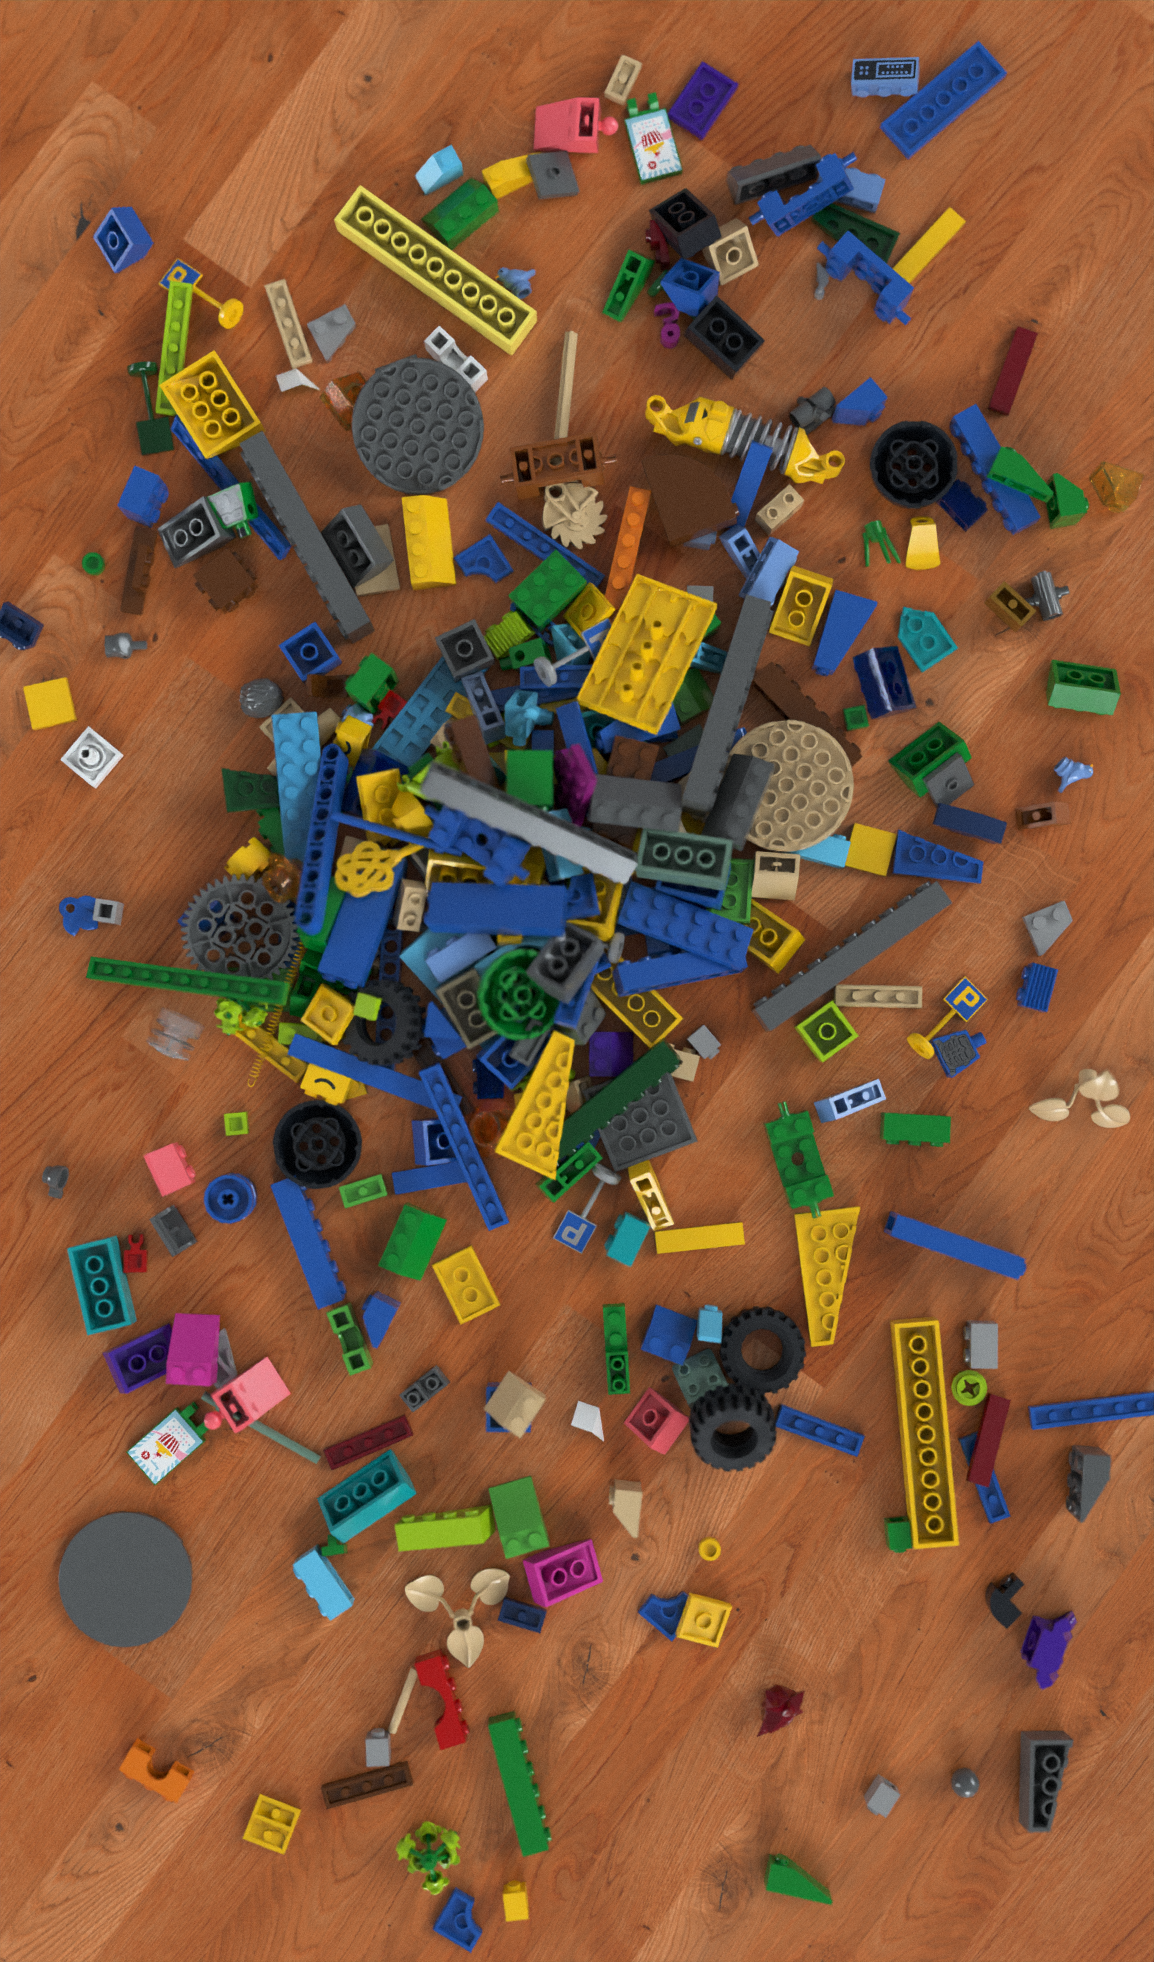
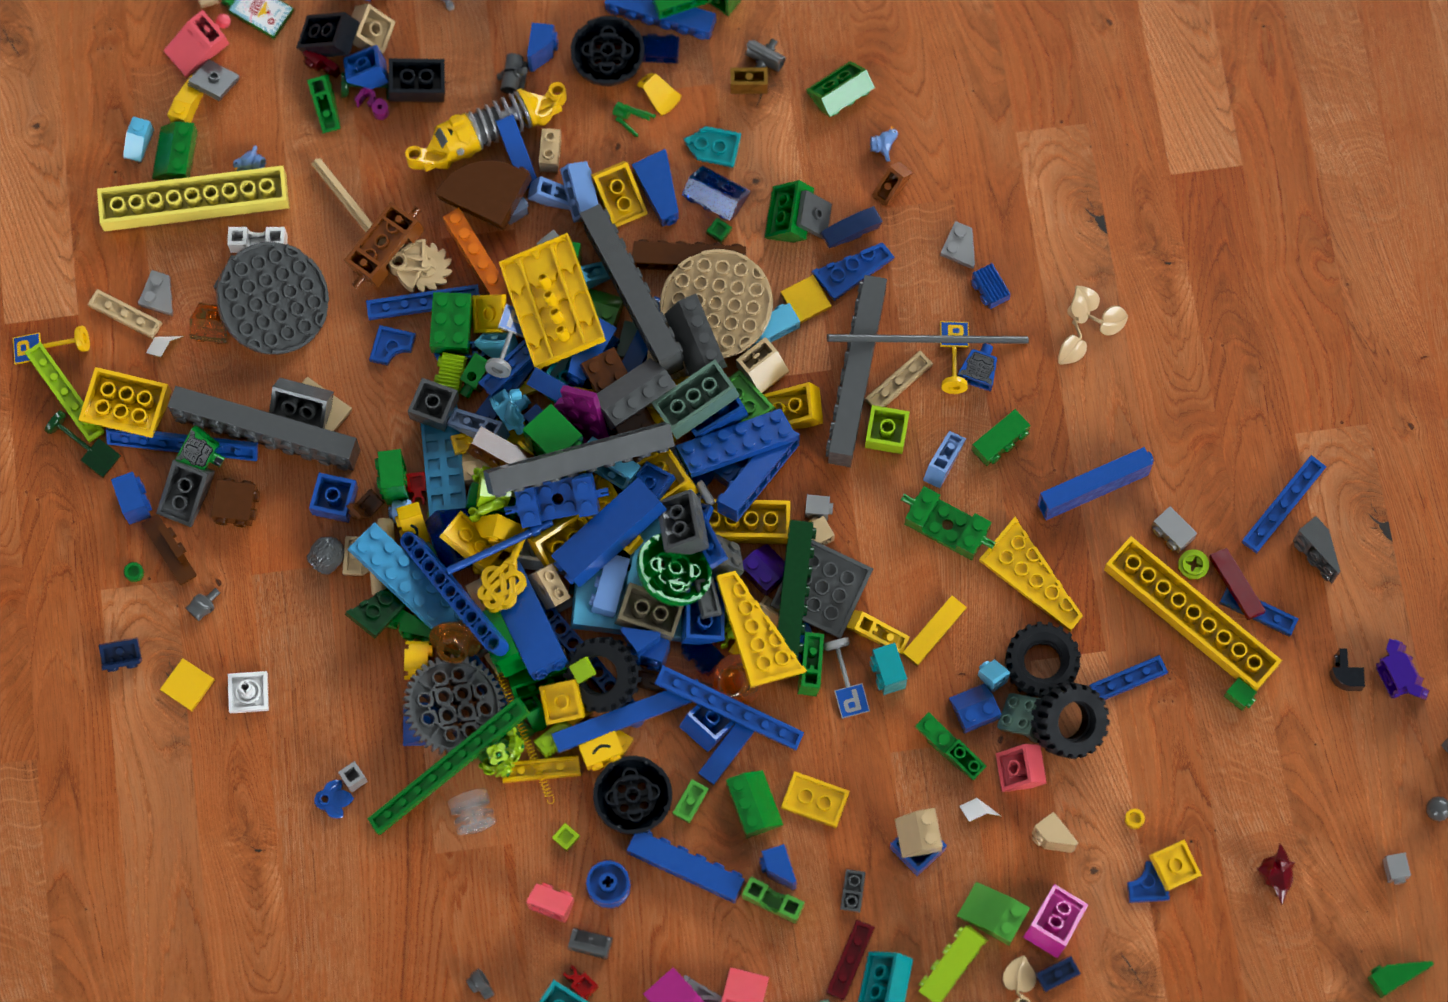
camera: 45 degrees left, 15 degrees down
(428, 542) = (343, 364): yellow slope -> none
(937, 988) = (927, 338): none -> dark grey piece

